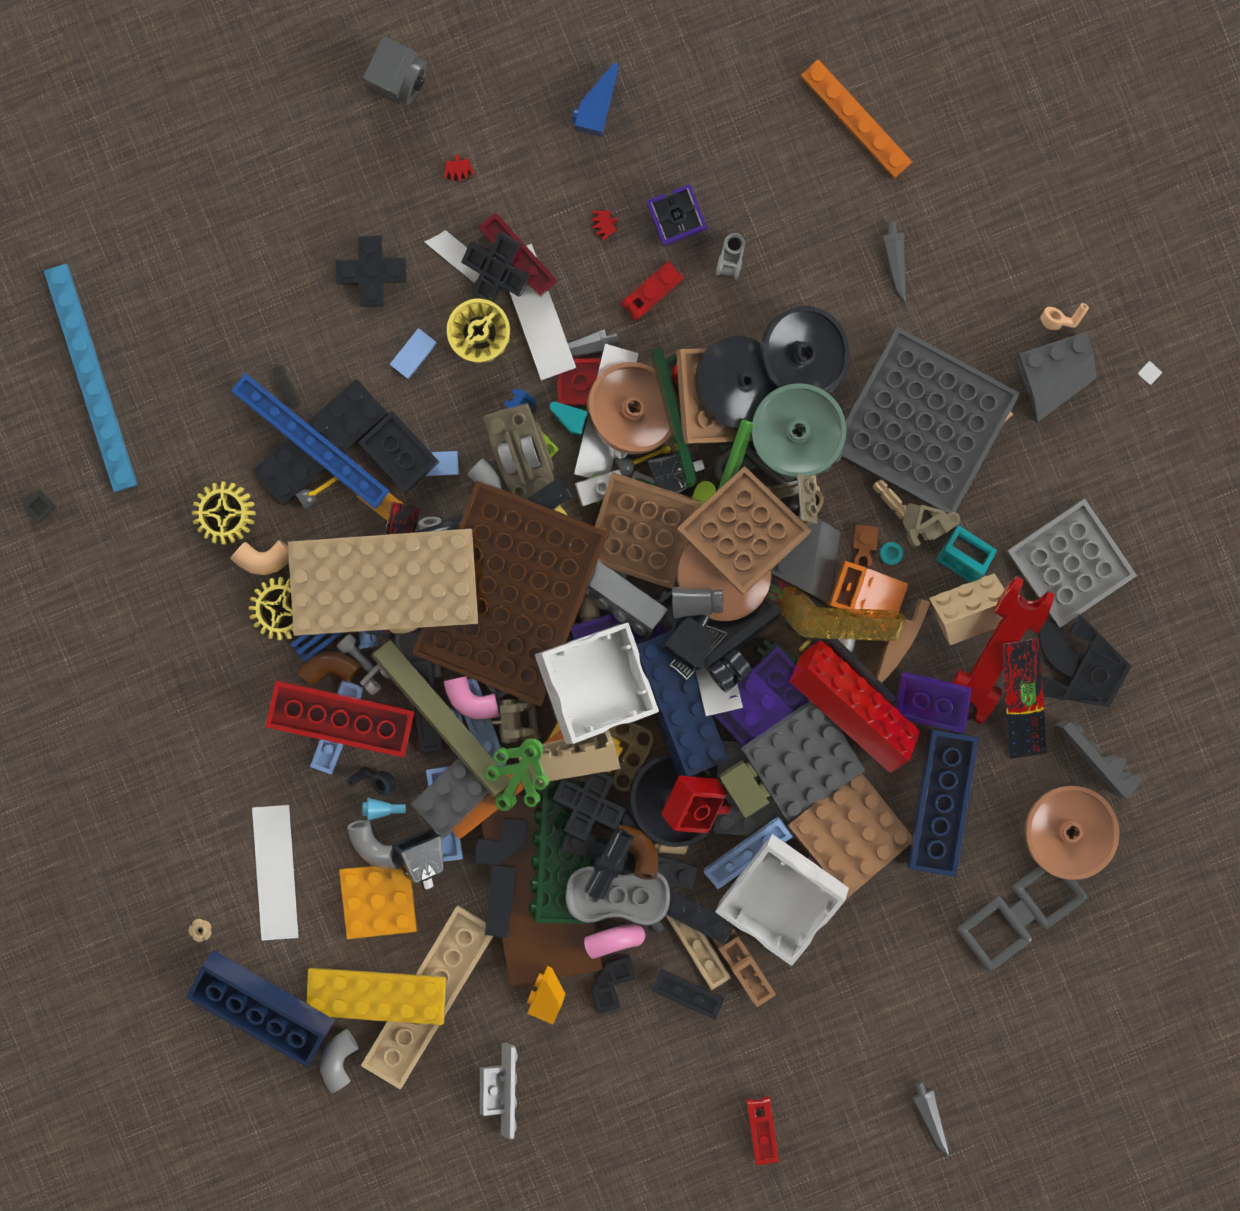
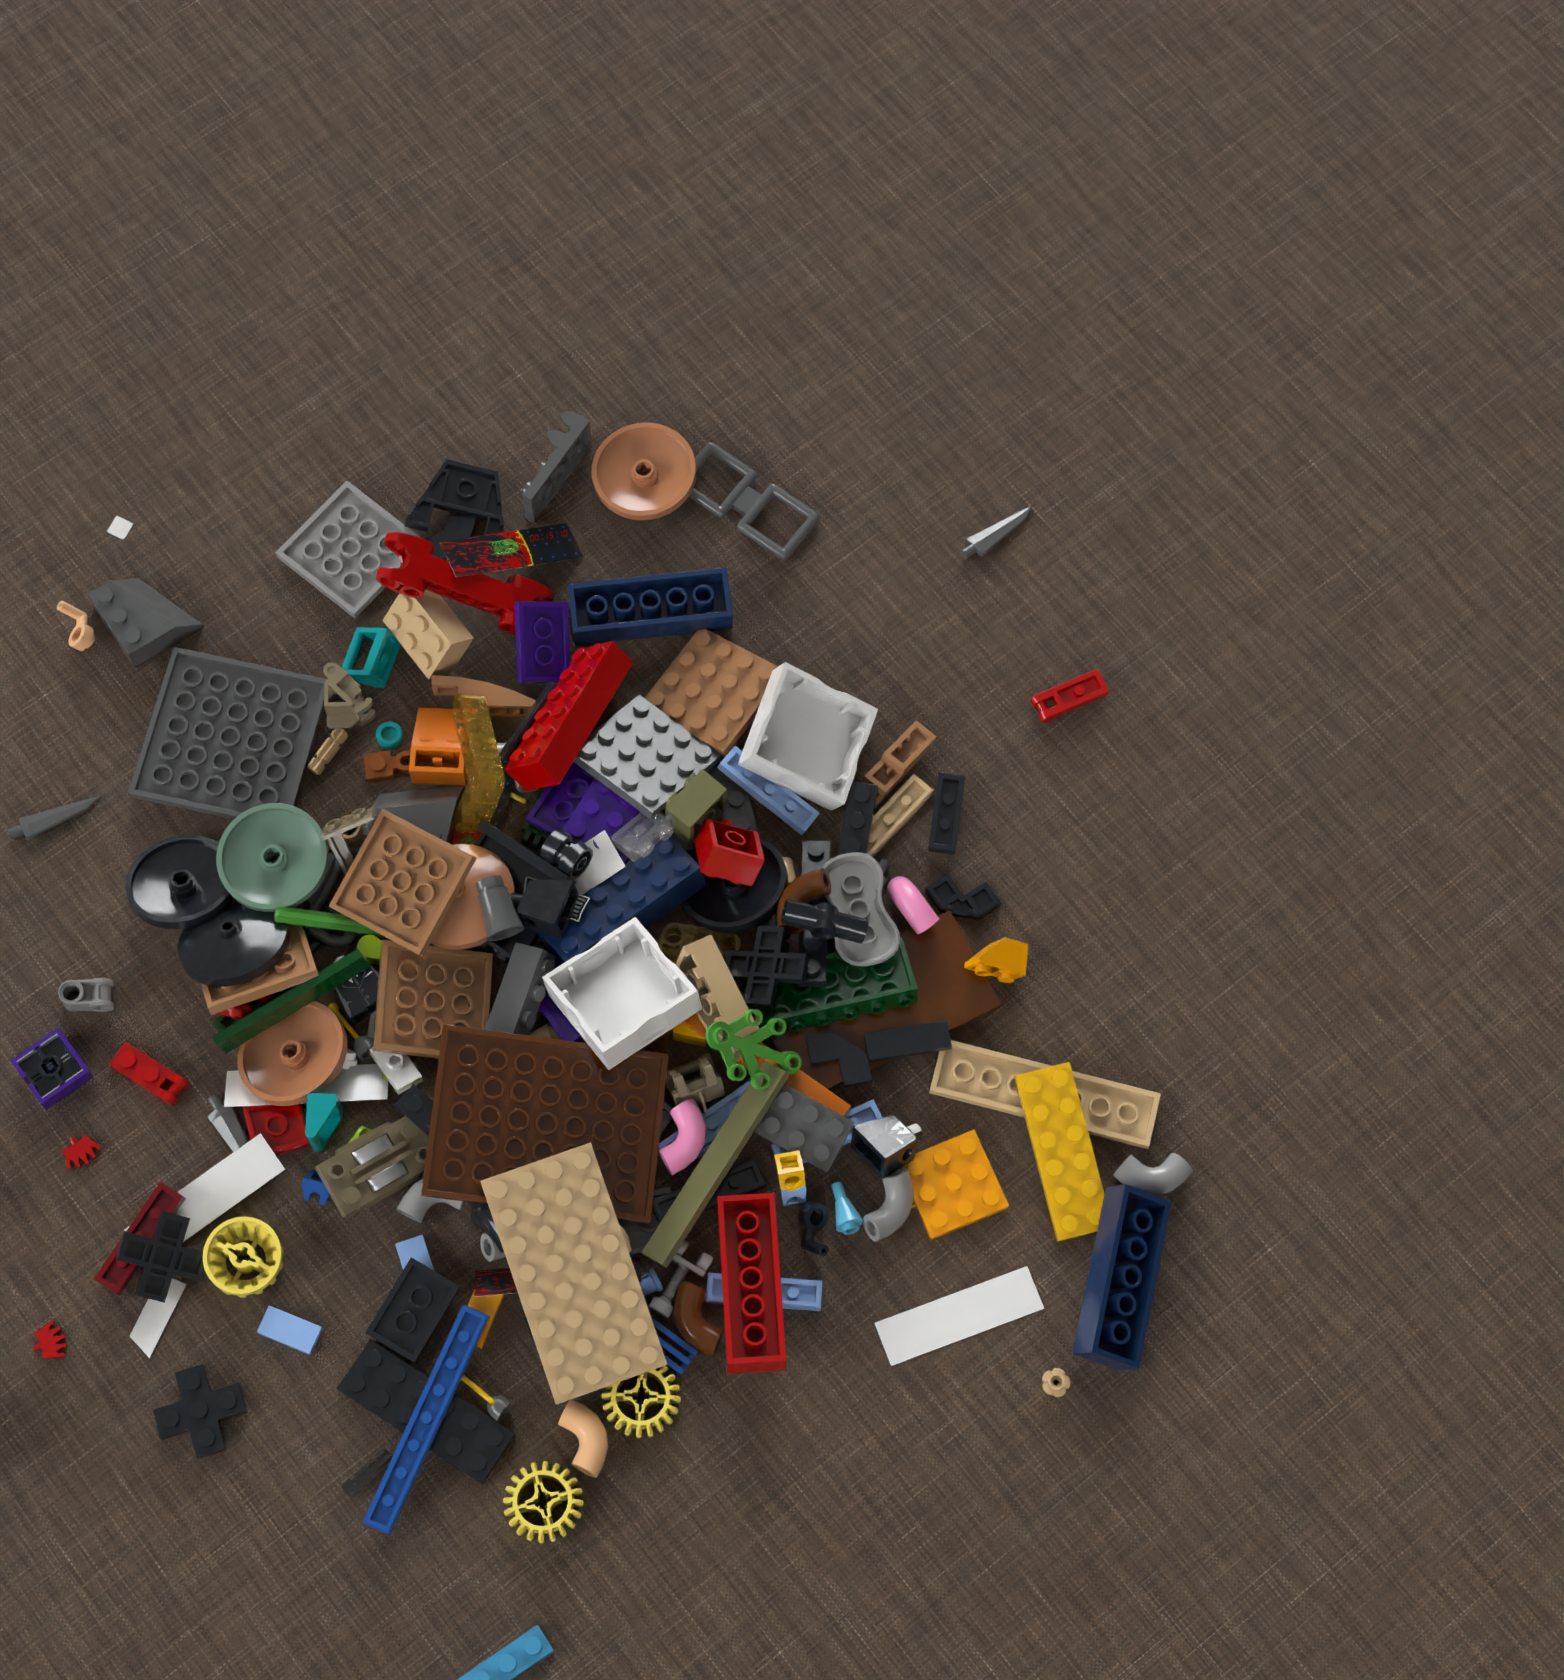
camera: 110 degrees left, 20 degrees down
(416, 774) = (791, 1177): none -> yellow leg
(498, 1090) = (1122, 983): light grey bracket -> none
(730, 736) = (642, 834): none -> clear bracket

